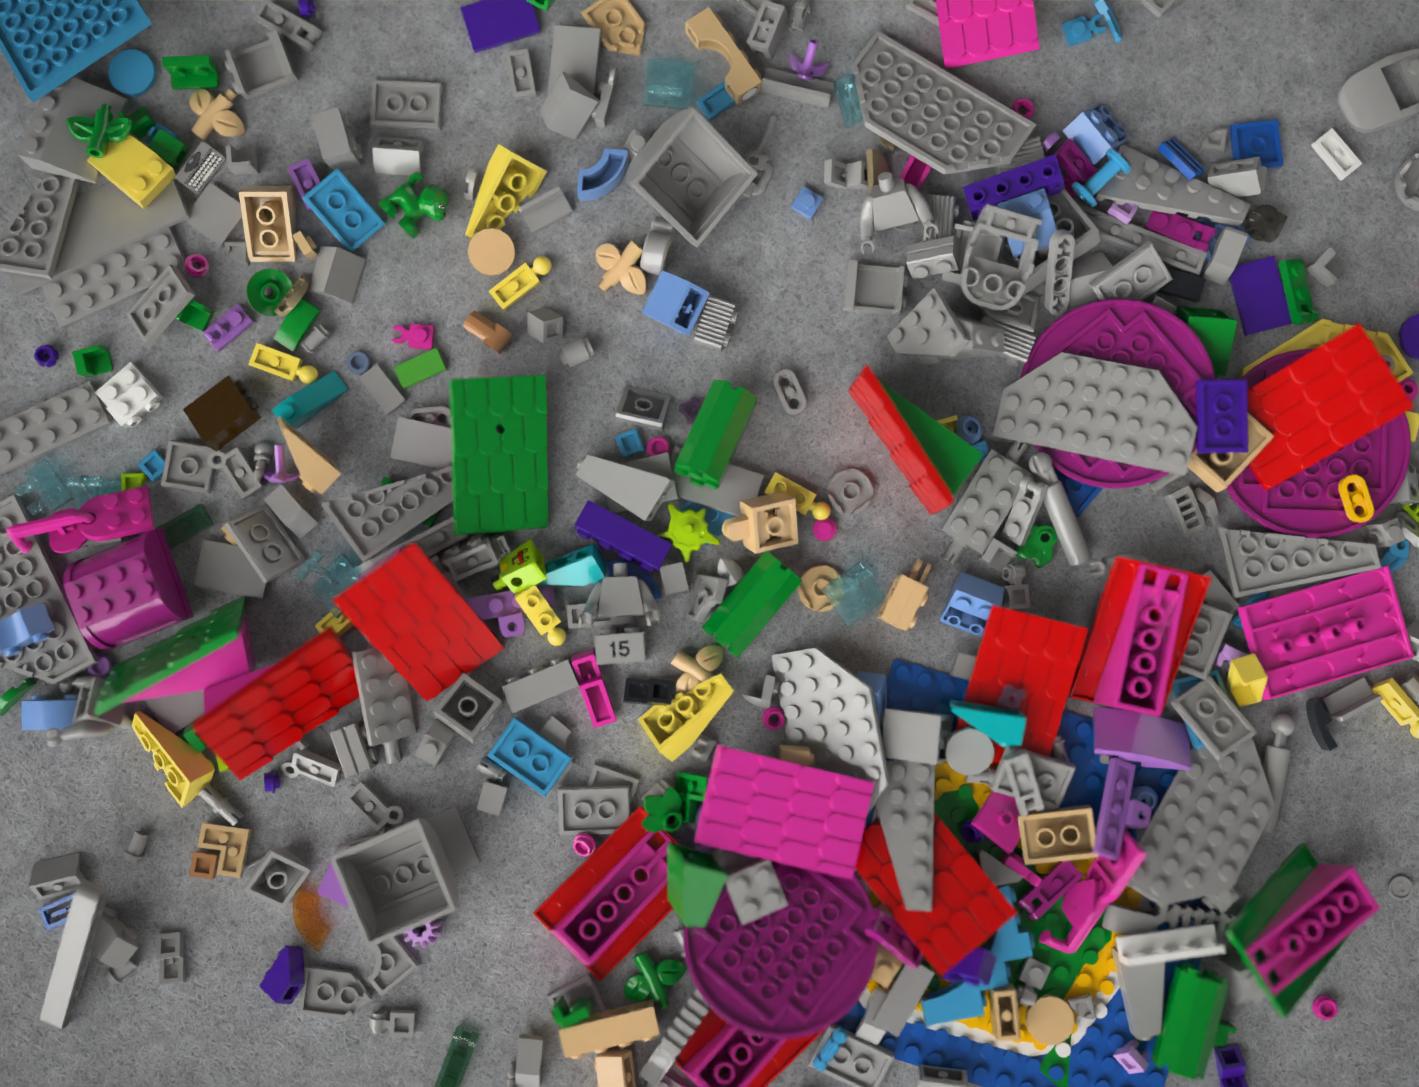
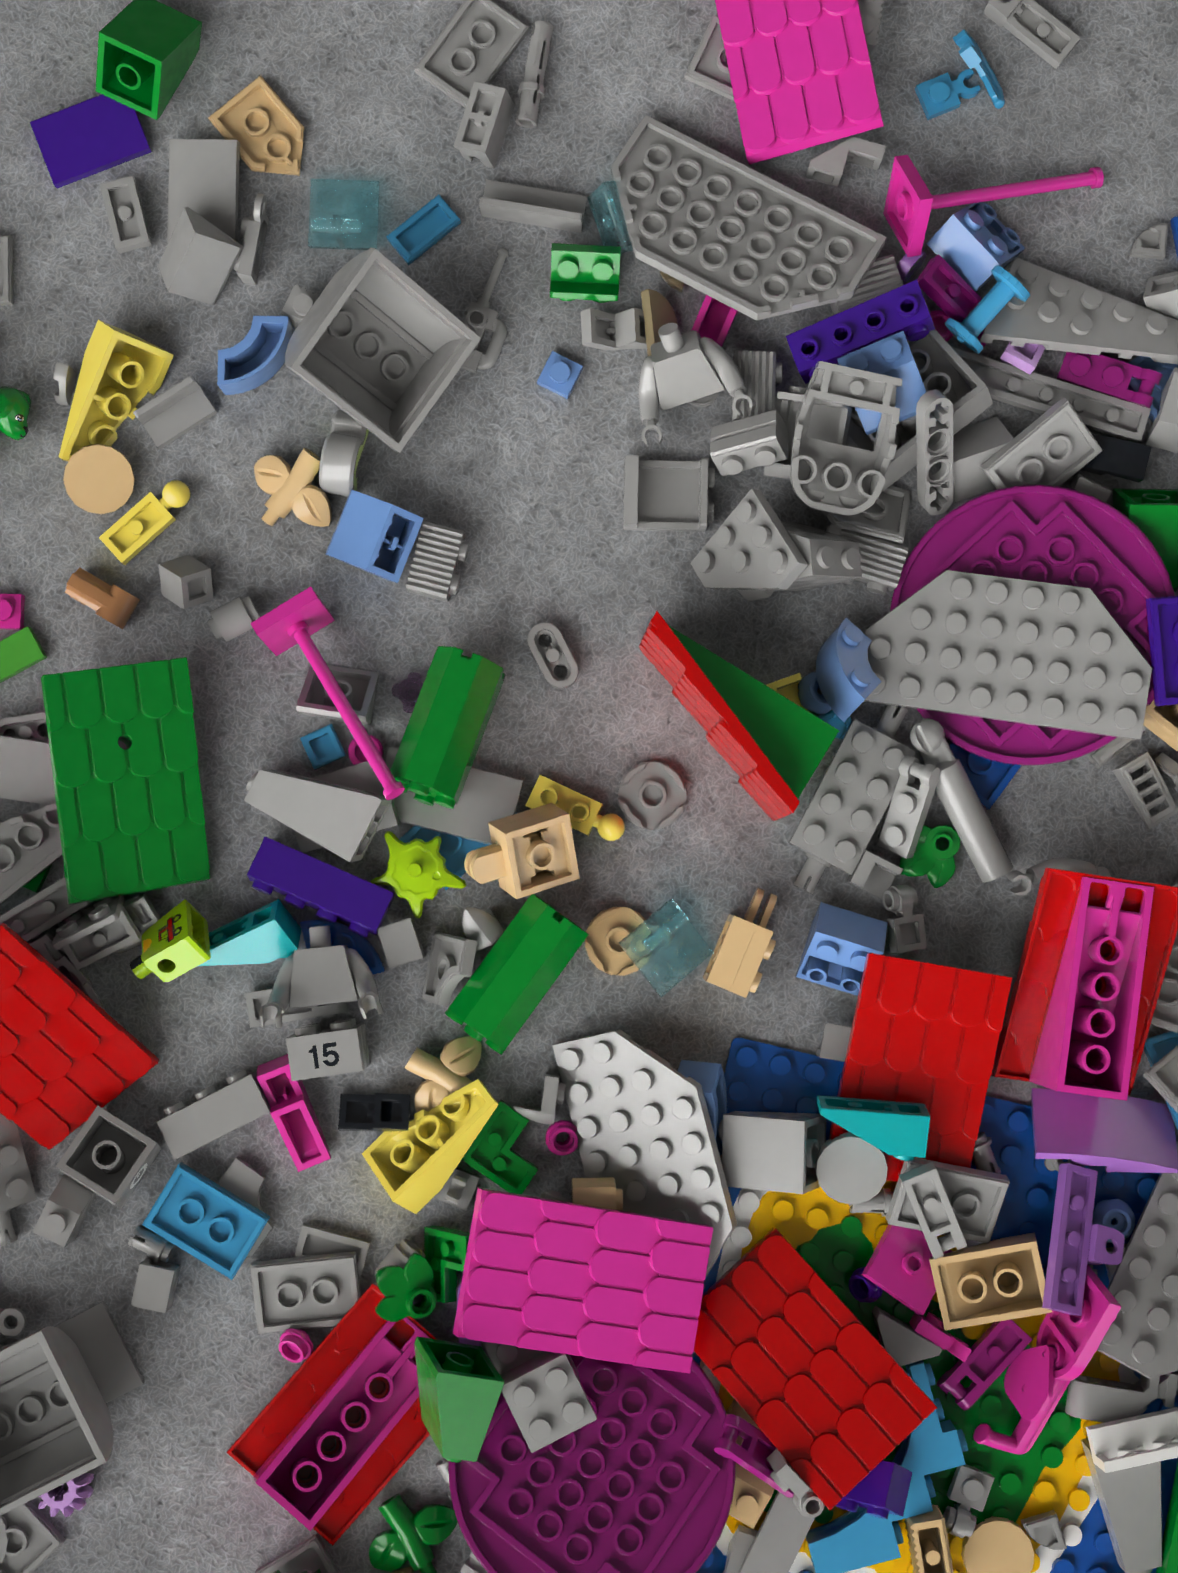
camera: 10 degrees left, 0 degrees up
(506, 608) = (160, 1001): medium lavender plate -> none
(541, 614) = (207, 1010): light yellow plate -> none
(617, 358) = (294, 624): none -> dark pink tile
(708, 33) = (397, 136): tan arch -> none
(726, 723) = (493, 1154): none -> green plate
(807, 69) = (543, 177): medium lavender plant -> none
(824, 529) = (618, 854): dark pink plate -> none
(829, 134) = (585, 272): none -> green bracket
(908, 823) = (769, 1290): light grey wing -> none
(923, 968) = (786, 1477): none -> light grey plate
(988, 415) = (845, 669): none -> medium blue brick
(1000, 73) = (830, 164): none -> light grey slope
(1009, 691) = (900, 1078): clear purple plate -> none
(1026, 104) = (871, 208): dark pink plate -> none
(1054, 101) = (910, 201): none -> dark pink tile
(1181, 159) = (1103, 273): blue tile -> none

